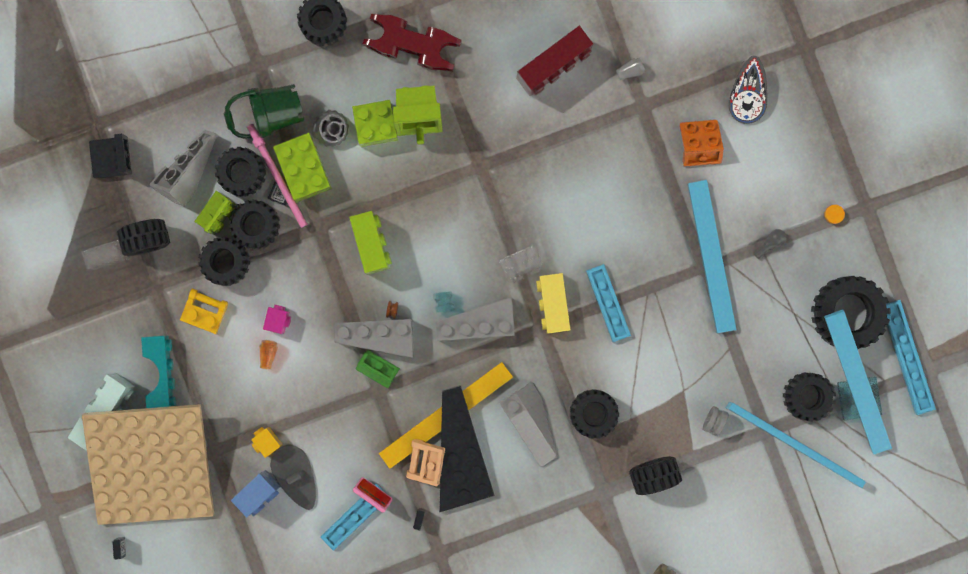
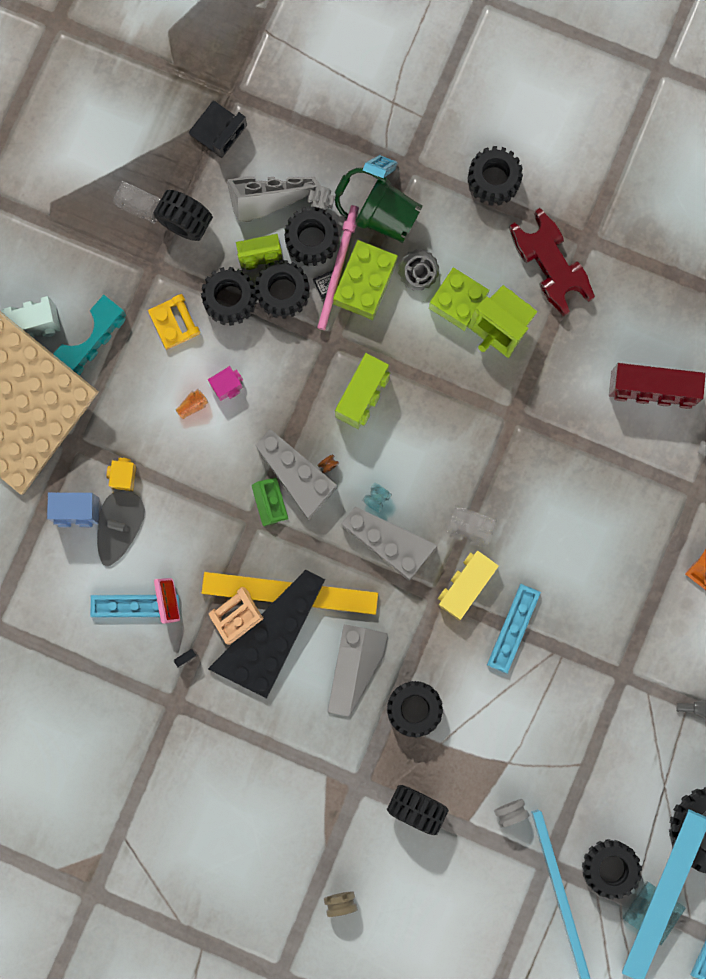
camera: 50 degrees right, 5 degrees down
(223, 141) = (321, 198): none -> light grey gear
(242, 84) = (380, 166): none -> medium azure tile
(711, 256) = (638, 672): medium azure tile -> none

